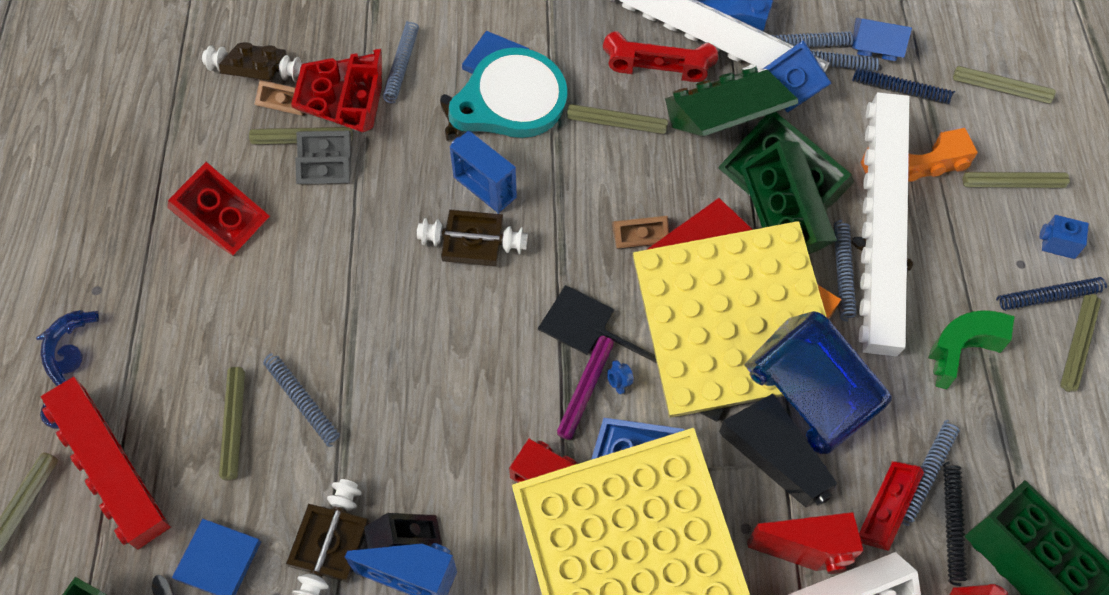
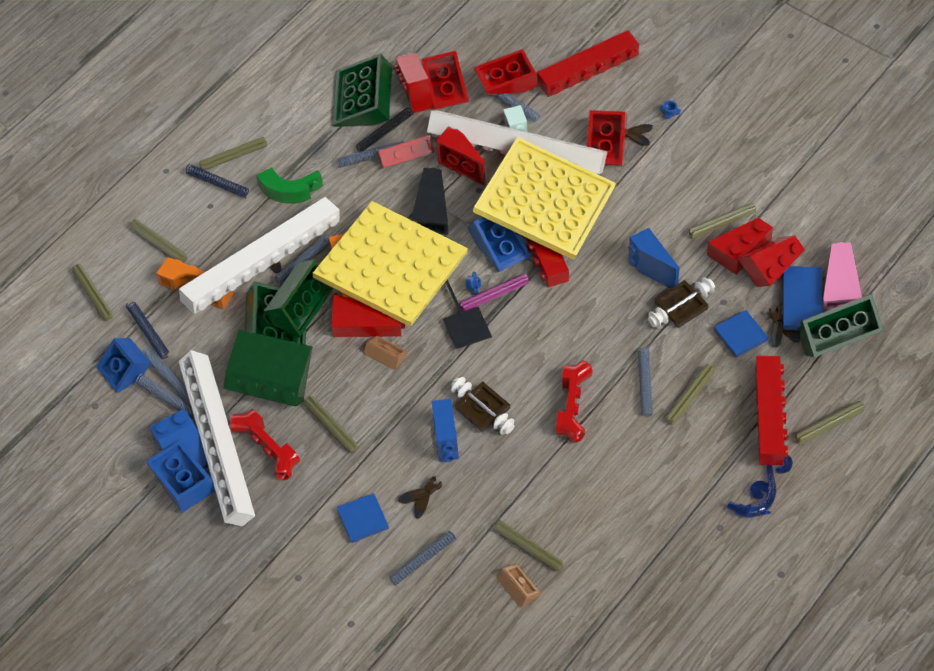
camera: 135 degrees left, 5 degrees down
(217, 209) = (617, 524): red slope -> none
(252, 61) = (520, 618): dark brown plate -> none
(323, 157) = (526, 518): dark grey slope -> none
(341, 90) = (483, 548): red wedge -> none
(394, 335) = (571, 378): none -> red plate
(403, 529) = (644, 282): black slope -> none
(511, 95) = (379, 477): piece -> none
(799, 73) = (209, 363): blue tile -> none
(820, 379) = (389, 204): clear blue windscreen -> none
(1064, 236) = (176, 196): blue brick -> none

